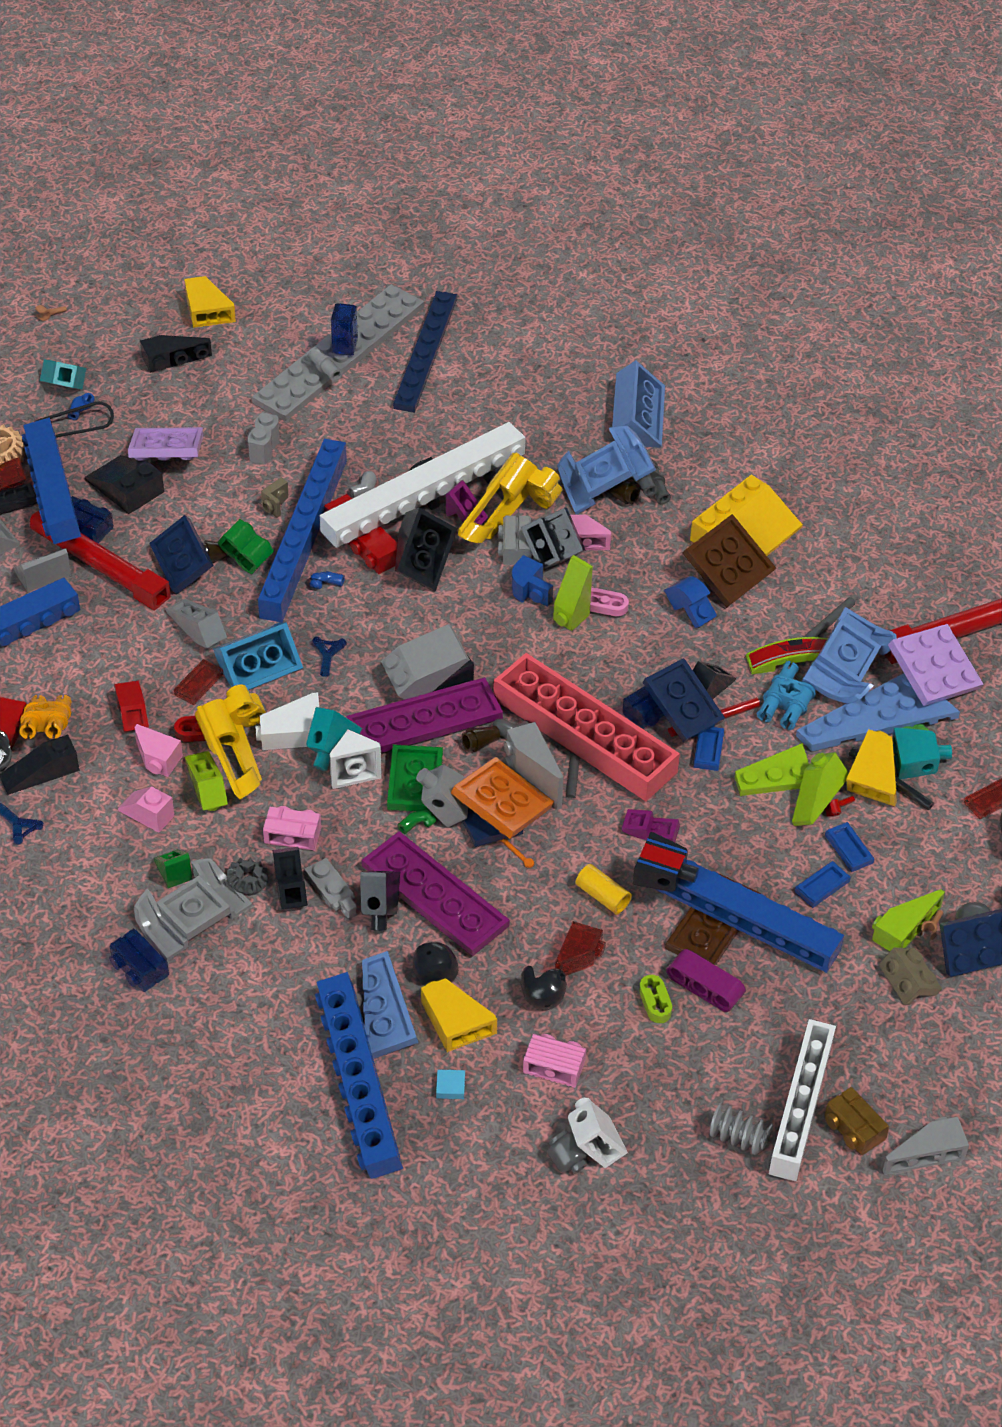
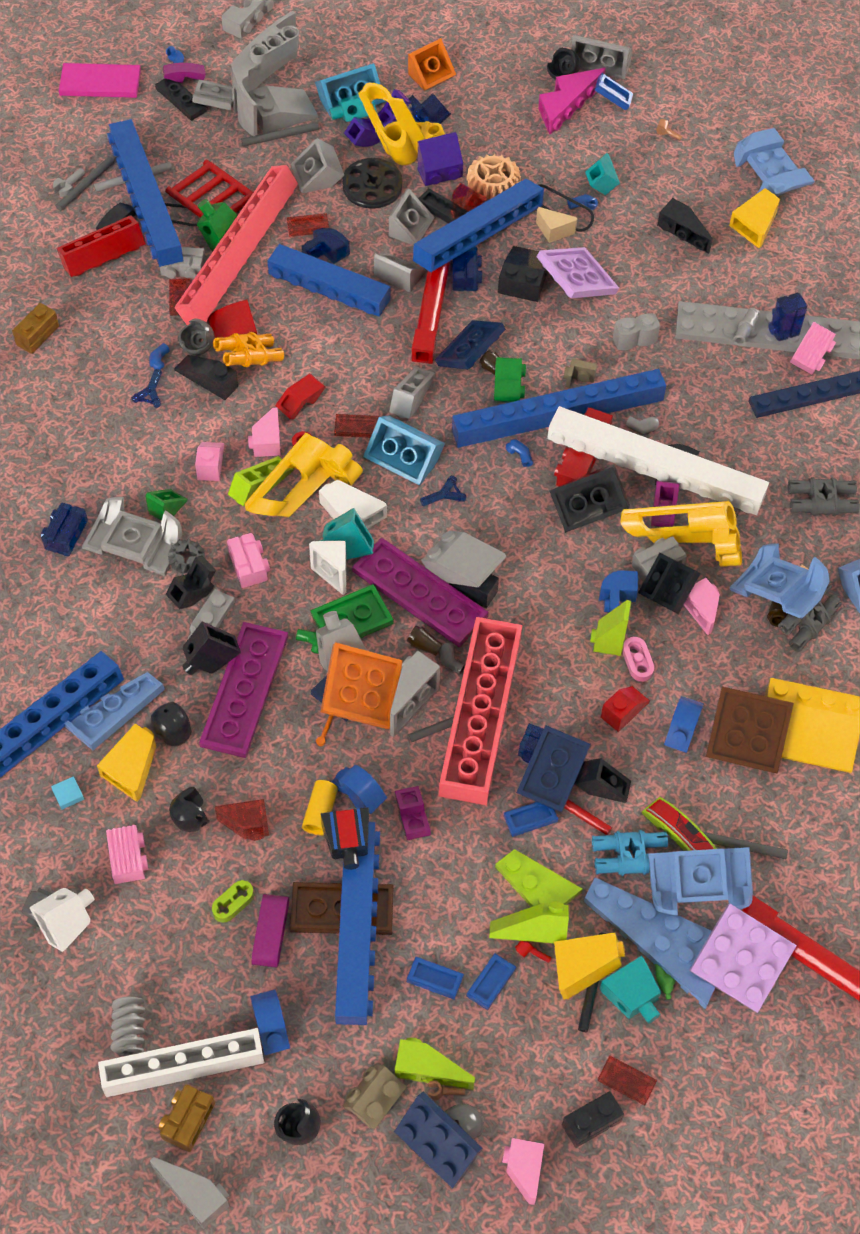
camera: 60 degrees right, 10 degrees up
(89, 435) = (555, 224): none -> tan slope
(169, 266) = (771, 162): none -> medium blue piece
(382, 336) = (813, 347): none -> bright pink brick
(533, 408) = (823, 496): none -> dark grey pin
(603, 846) = (360, 788): none -> blue brick
(647, 635) = (623, 707): none -> red slope
(792, 1012) = (270, 1022): none -> blue brick
(906, 1027) = (298, 1124): none -> black helmet

